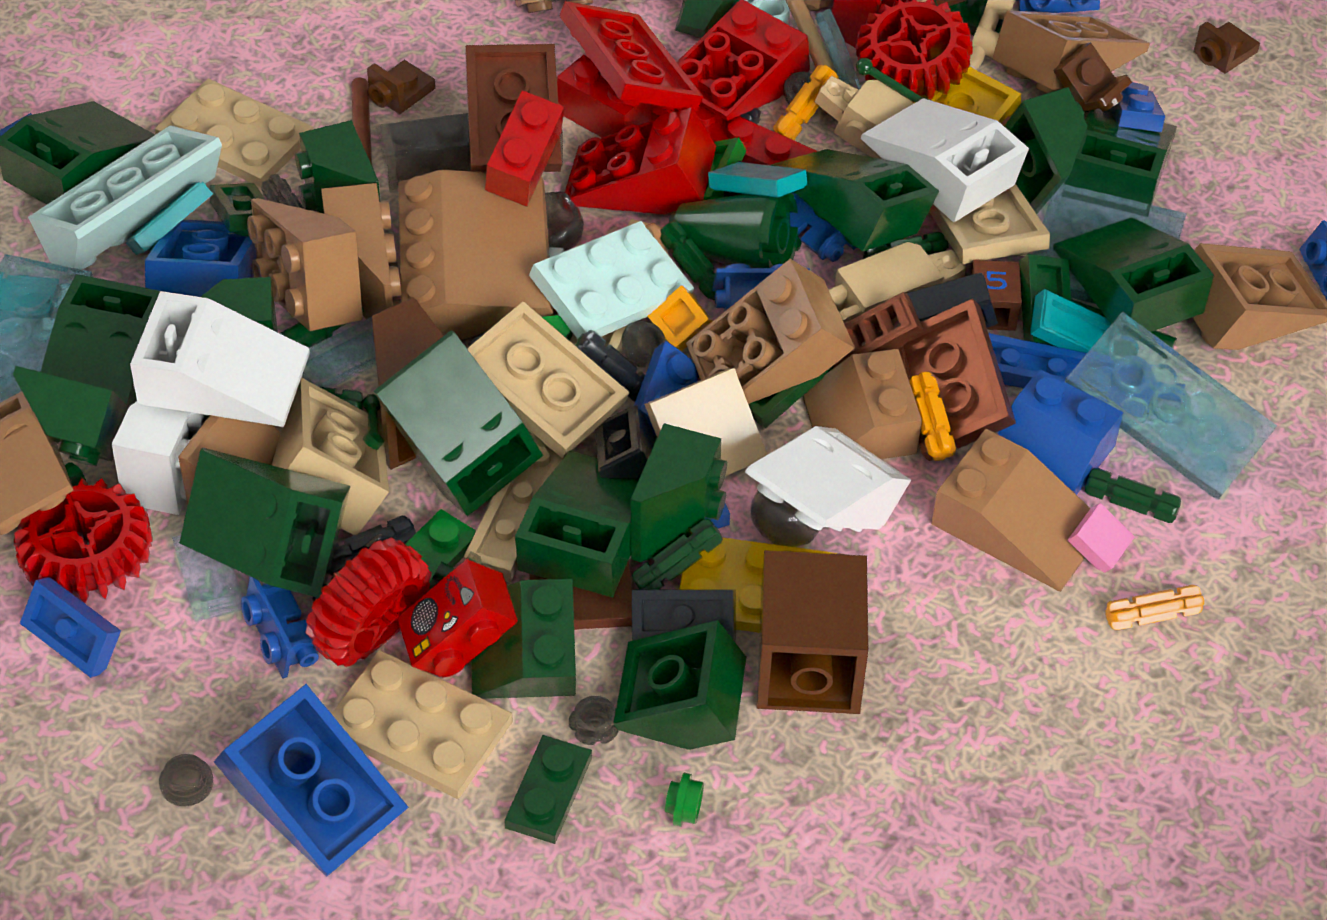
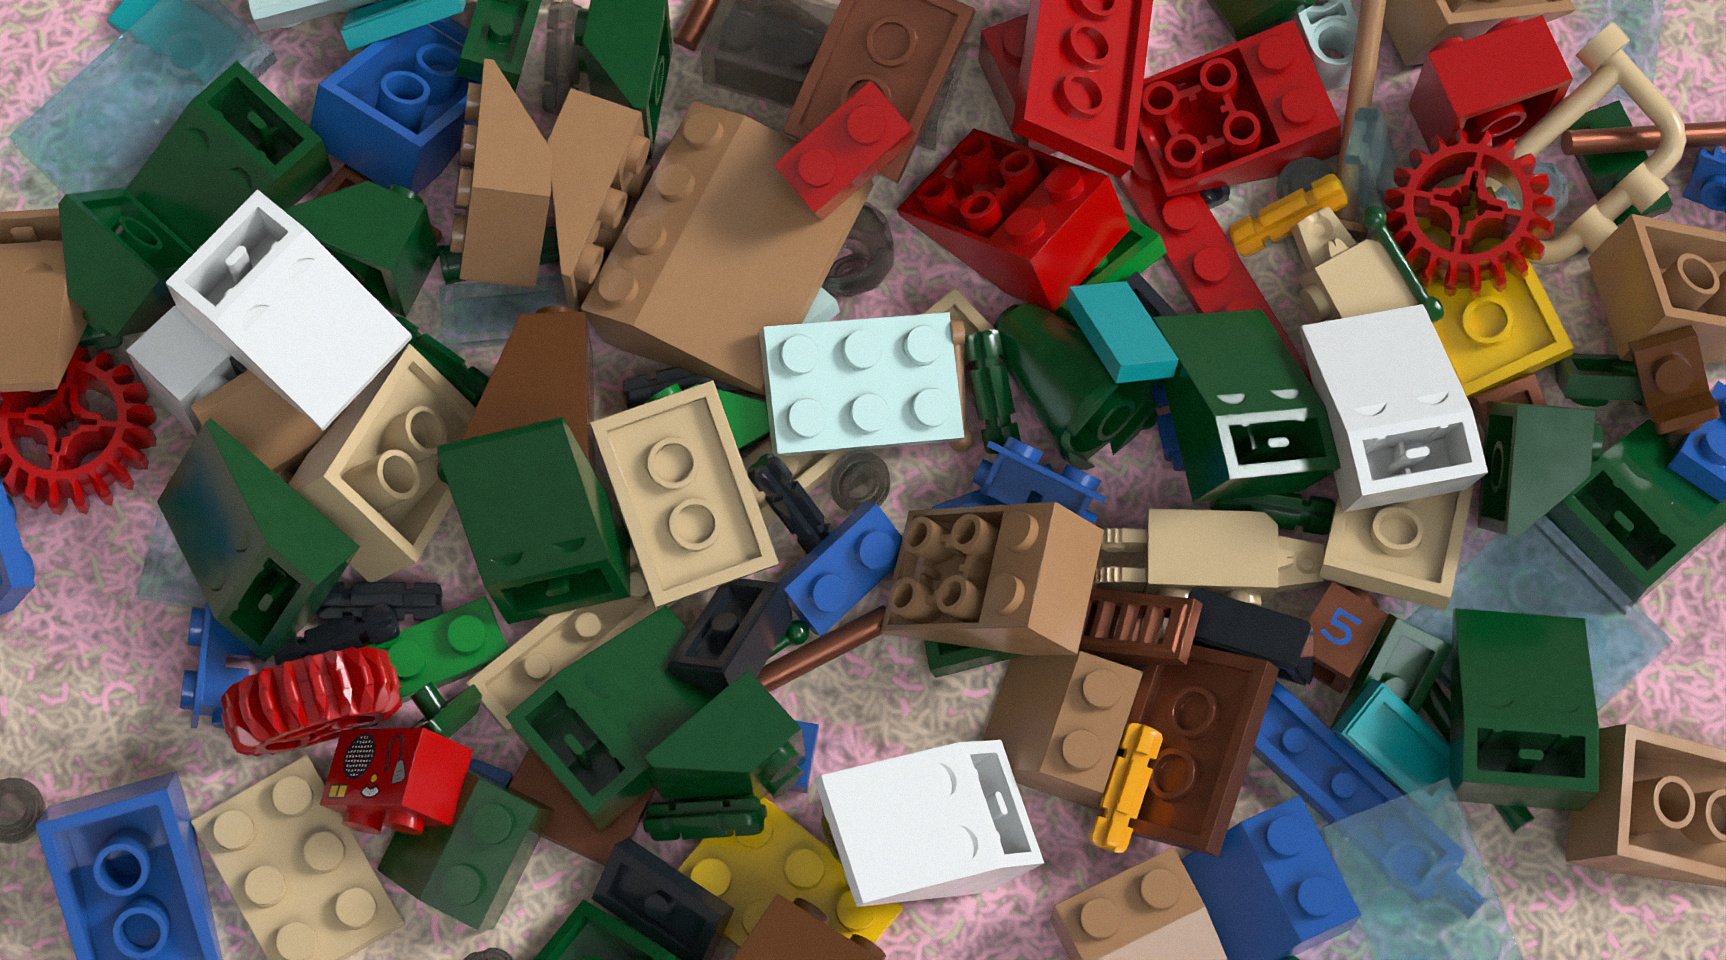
camera: 30 degrees right, 20 degrees up
(680, 317) = (923, 473): light orange plate -> none
(716, 409) = (846, 658): tile -> none

